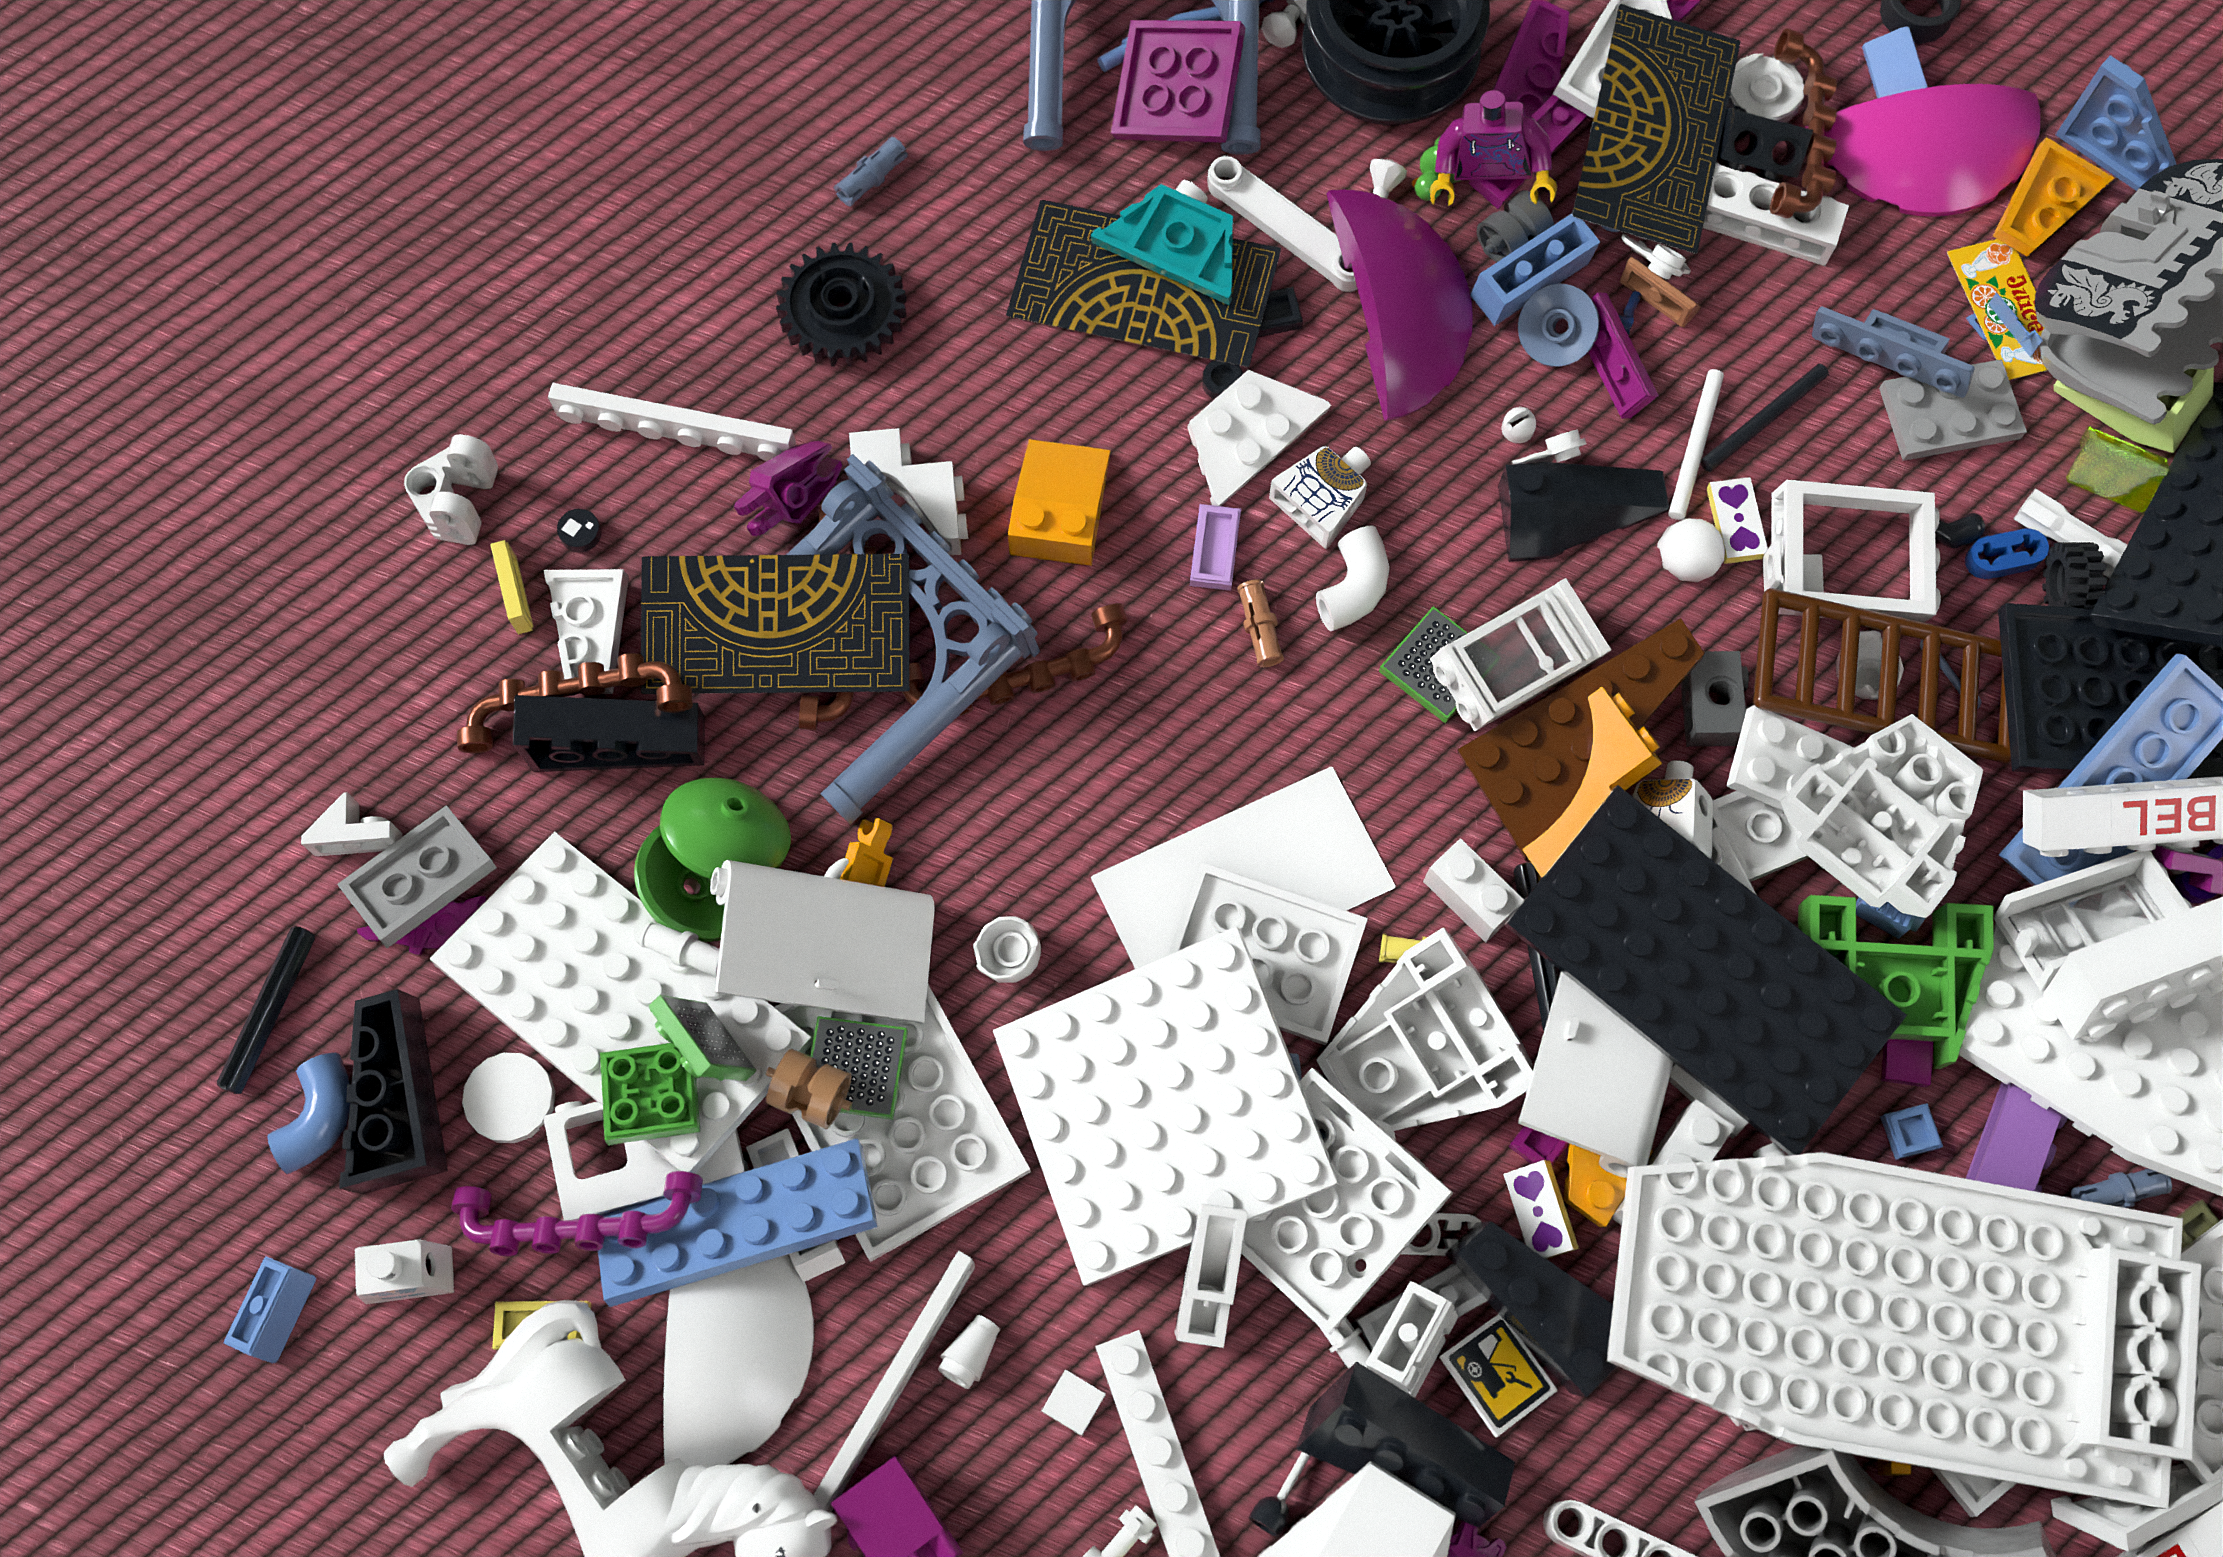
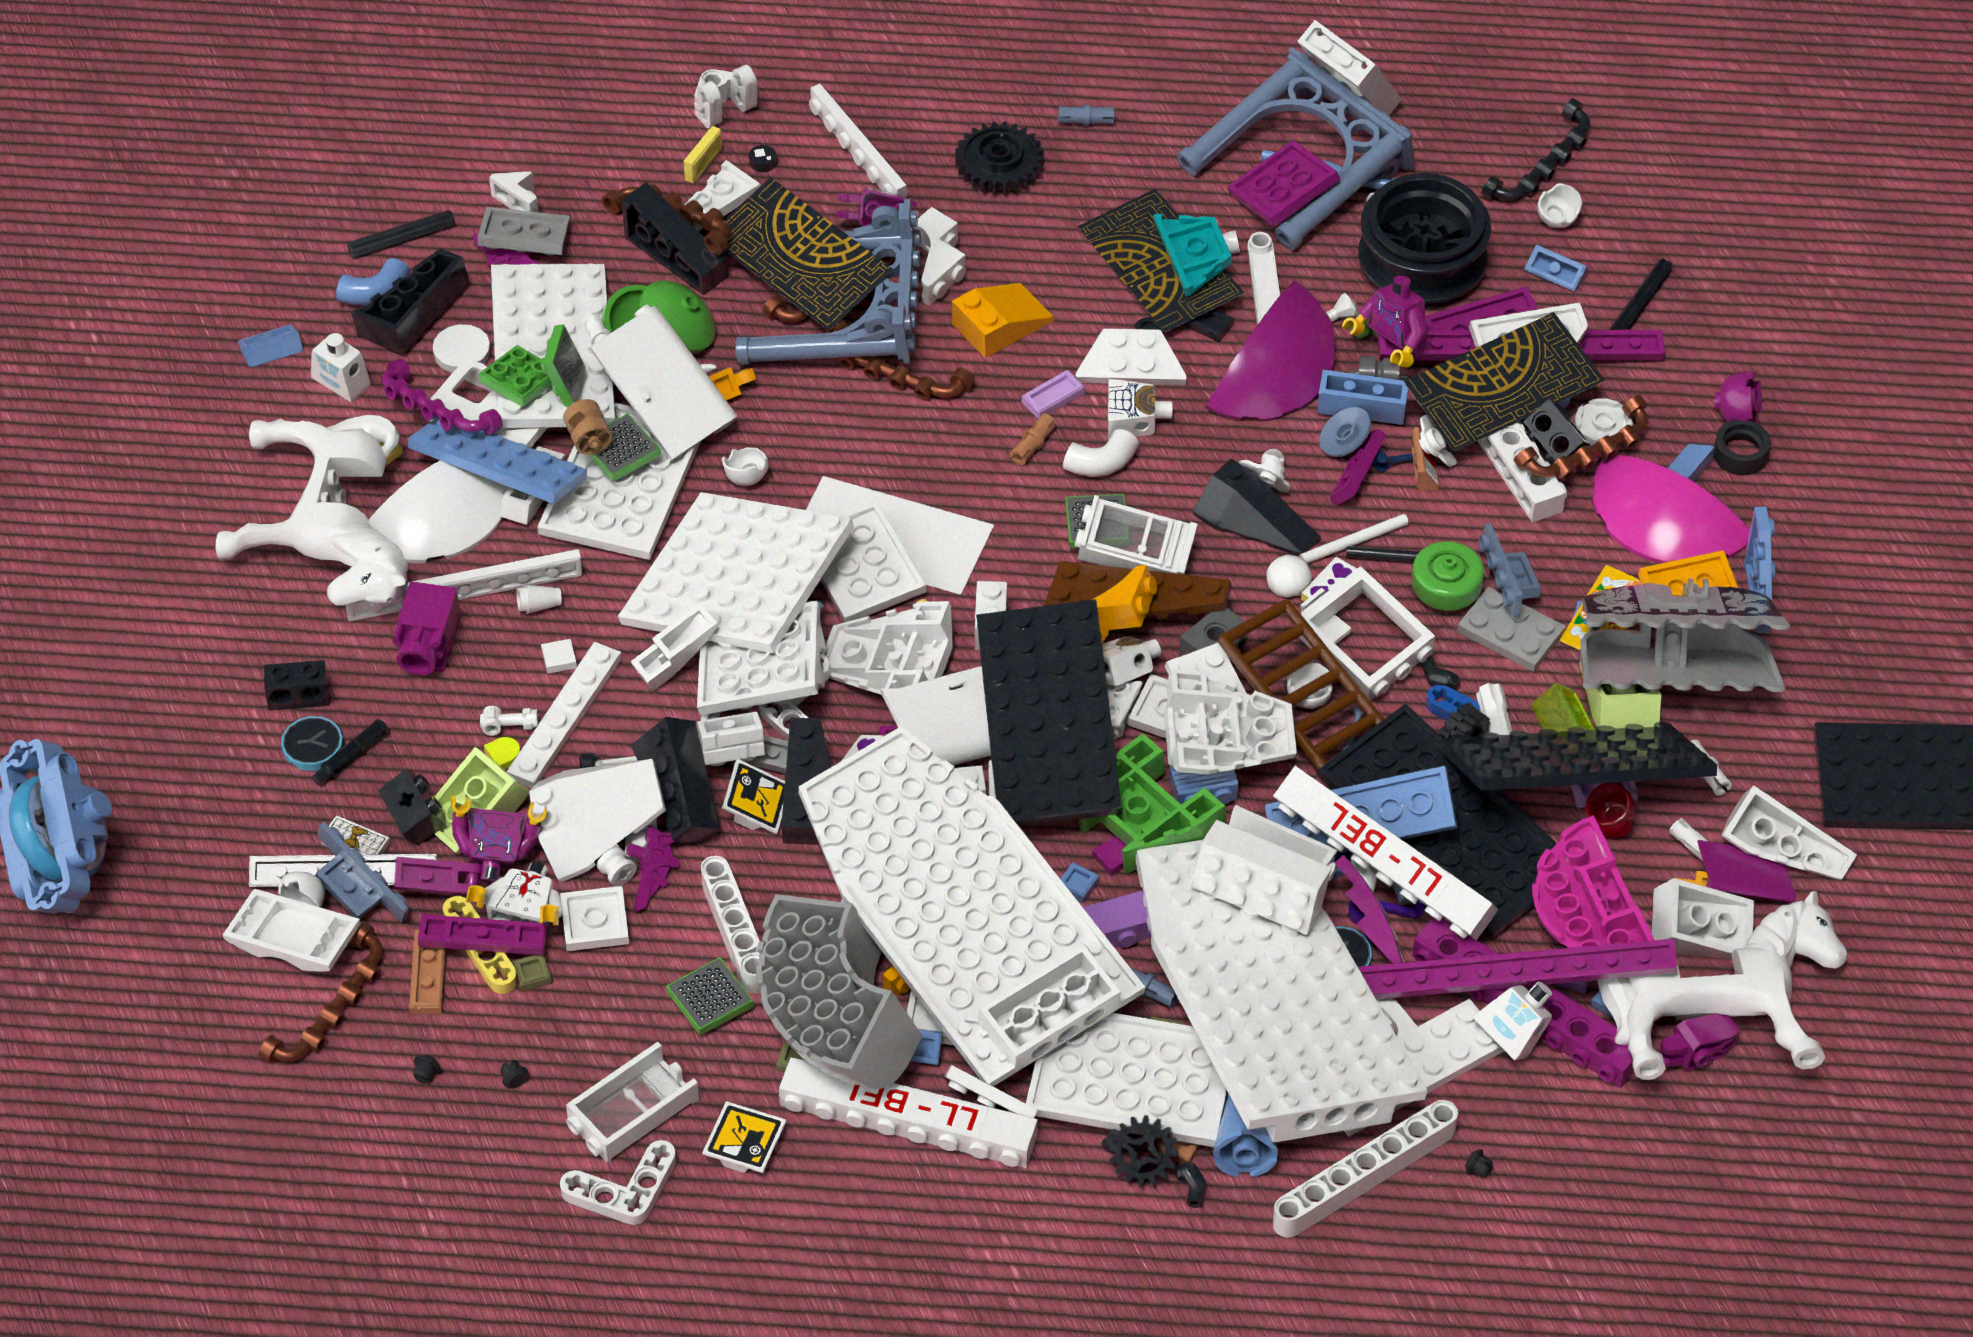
camera: 45 degrees right, 20 degrees down
(1848, 406) = (1447, 575): none -> bright green wheel
(2013, 1506) = (928, 1048): none -> medium blue tile

